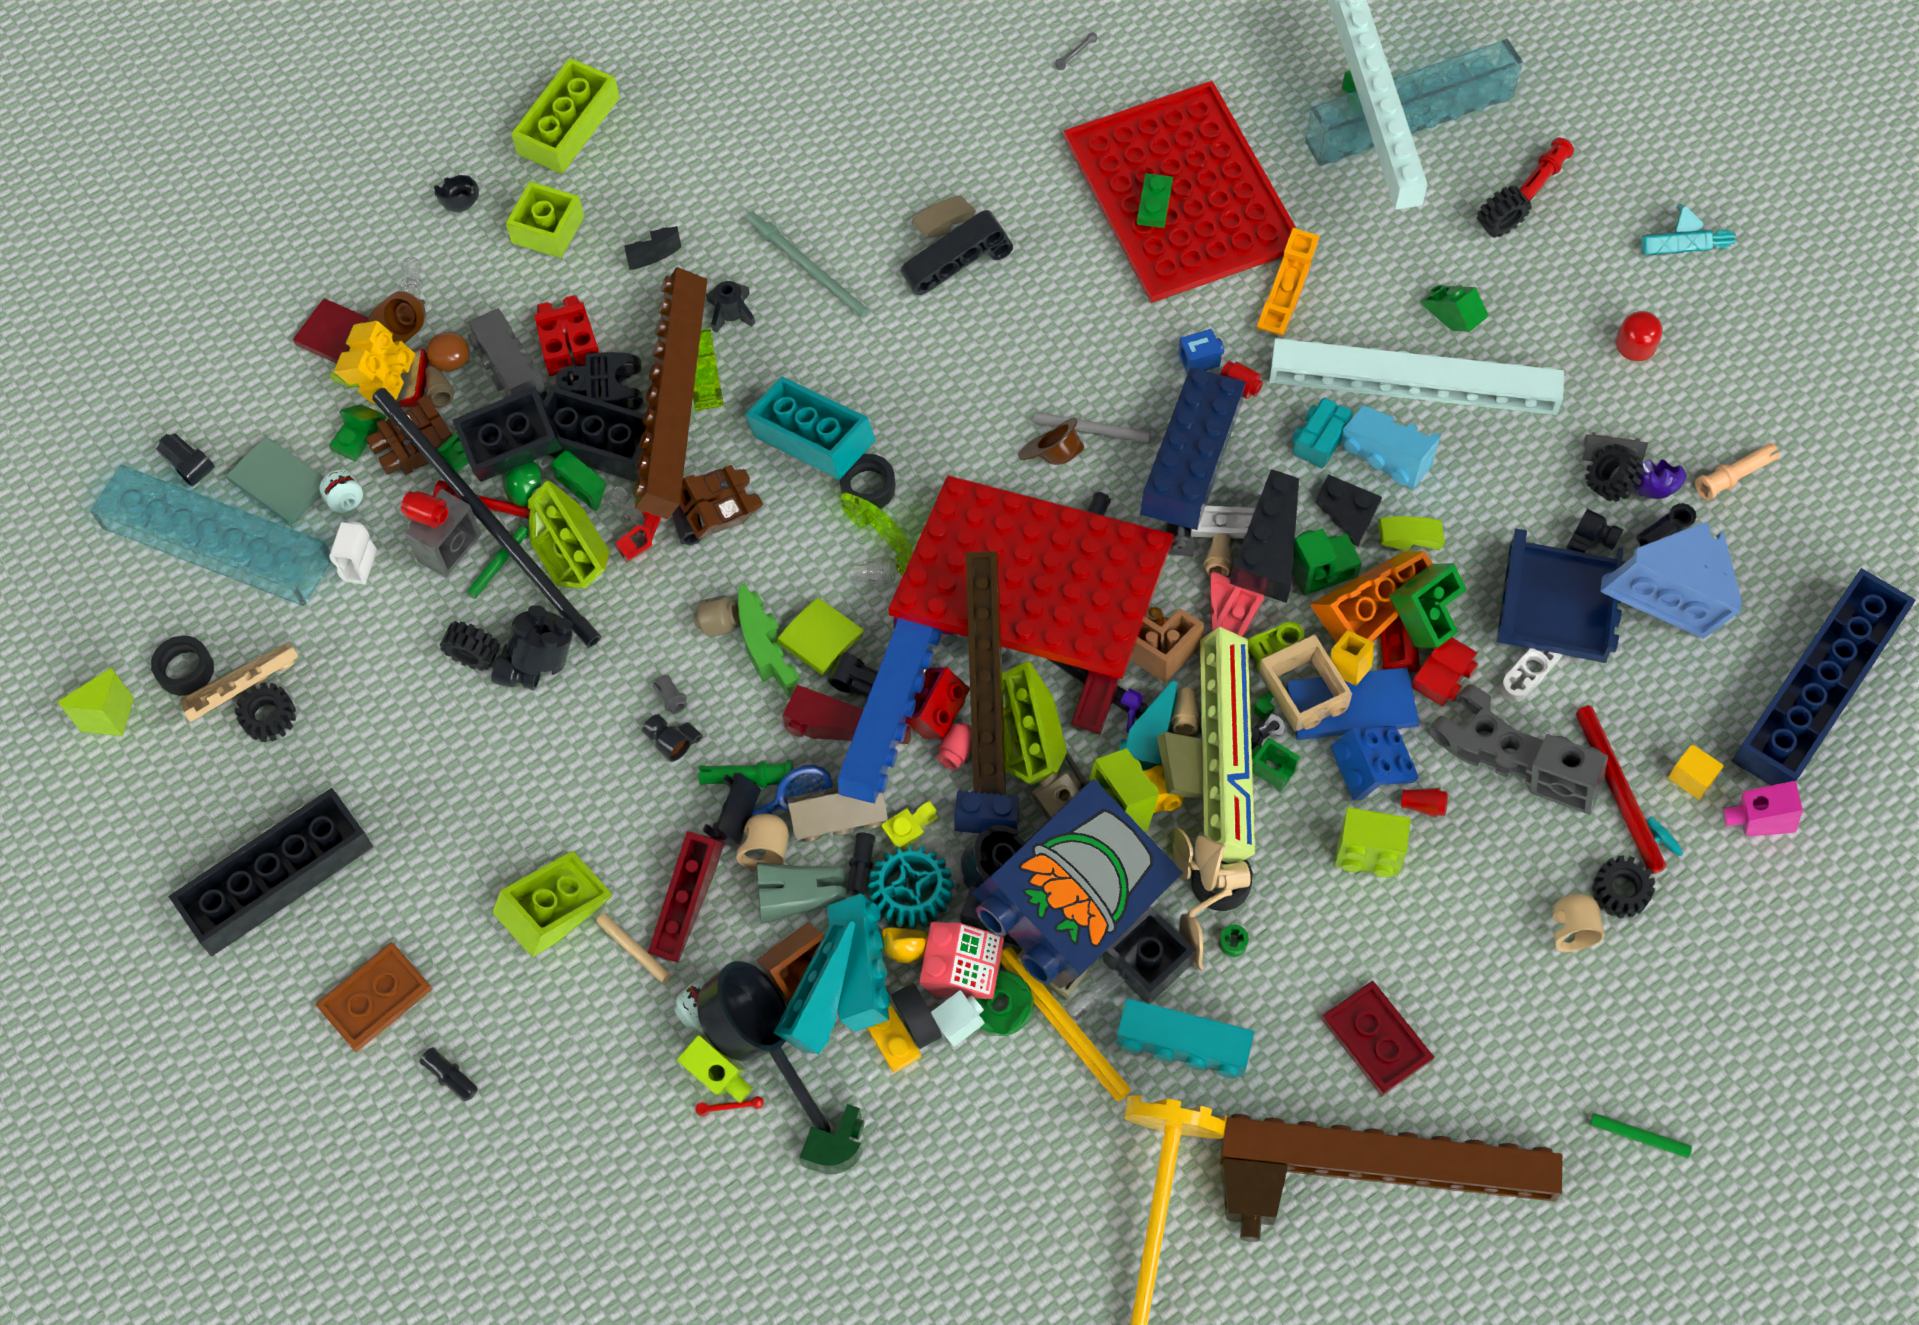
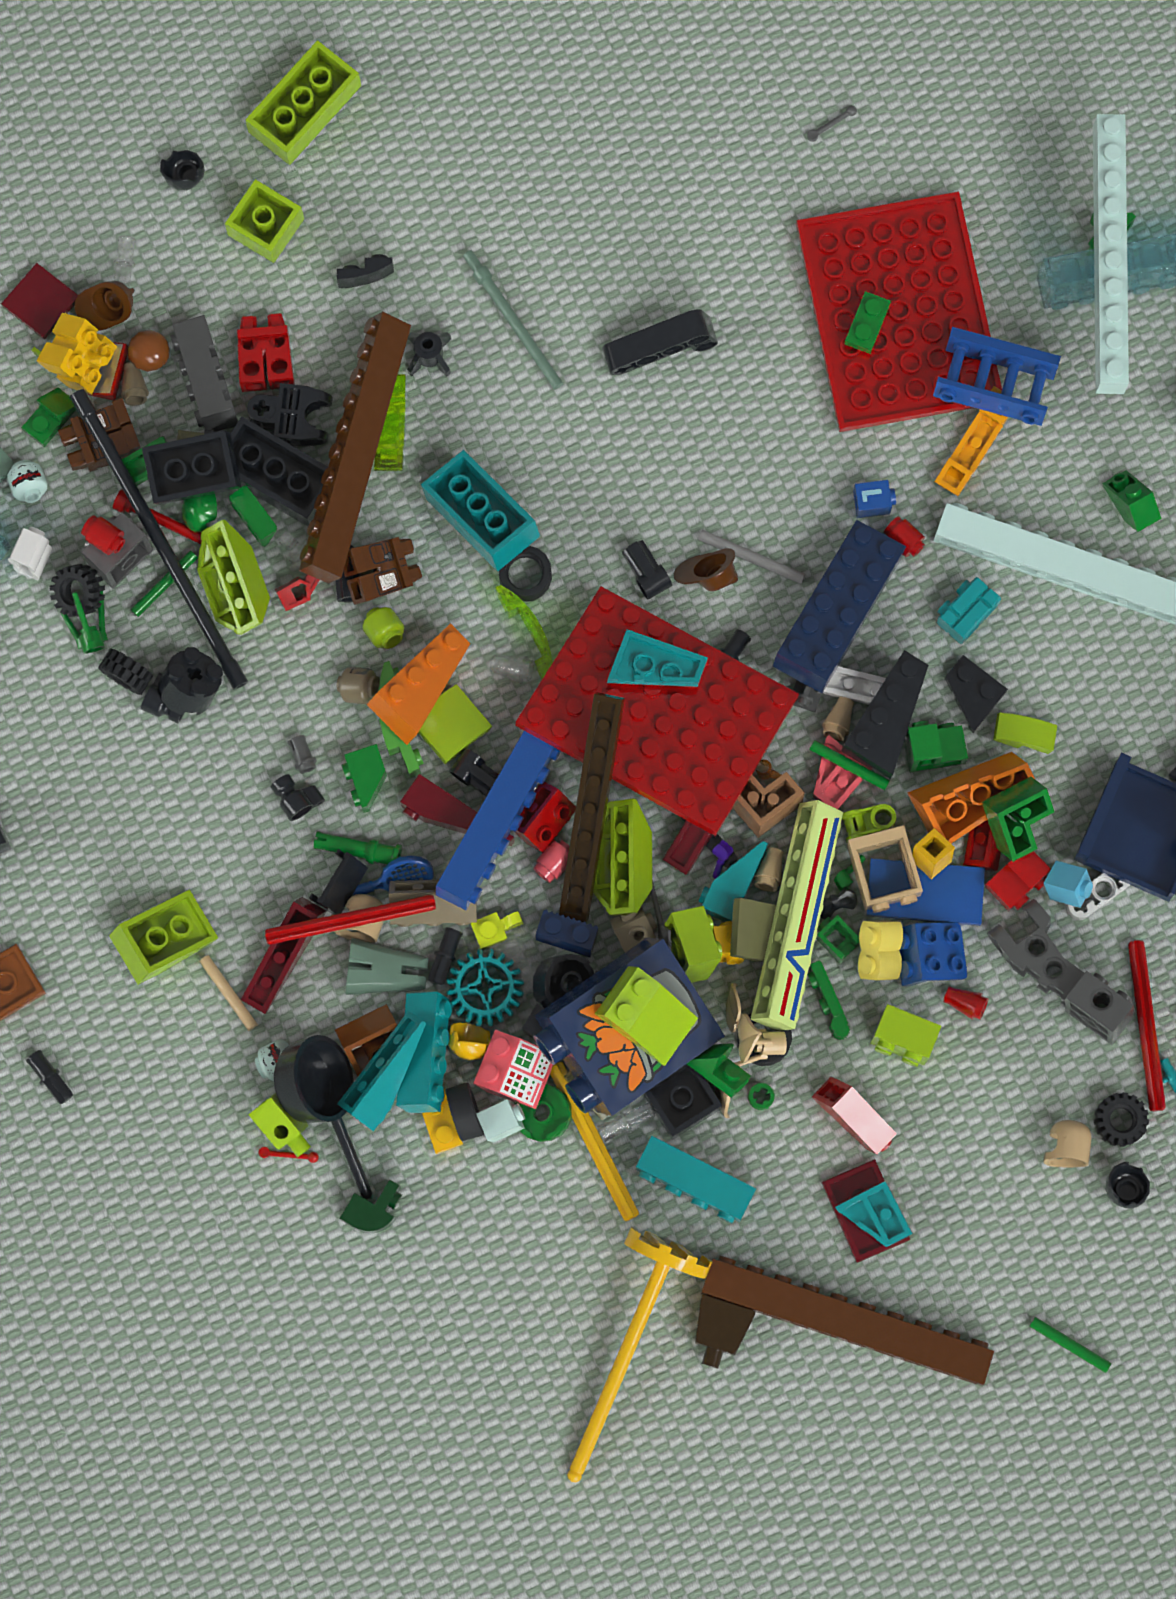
camera: 10 degrees right, 15 degrees up
(422, 579) = (90, 586): none -> black tyre
(429, 625) = (91, 639): none -> green plant
(732, 557) = (383, 627): none -> lime head
(742, 699) = (368, 775): none -> green slope
(751, 836) = (350, 919): none -> red axle
(774, 601) = (416, 688): none -> orange wedge
(940, 216) = (654, 294): dark tan slope -> none
(994, 461) = (649, 575): none -> black piece
(1021, 526) = (655, 663): none -> teal wing
(1095, 857) = (646, 1014): none -> lime slope
(1178, 908) = (720, 1070): none -> green slope
(1242, 593) = (849, 765): none -> green bar
(1281, 828) = (829, 1002): none -> green hinge
(1293, 200) = (1004, 354): none -> blue fence
(1322, 763) = (880, 950): none -> light yellow brick
(1340, 936) = (854, 1115): none -> slope
(1390, 446) = (1026, 639): medium azure wedge -> none
(1393, 1034) = (877, 1214): none -> teal wing
(1499, 662) = (1068, 884): none -> medium azure brick
(1651, 952) = (1127, 1186): none -> black hair

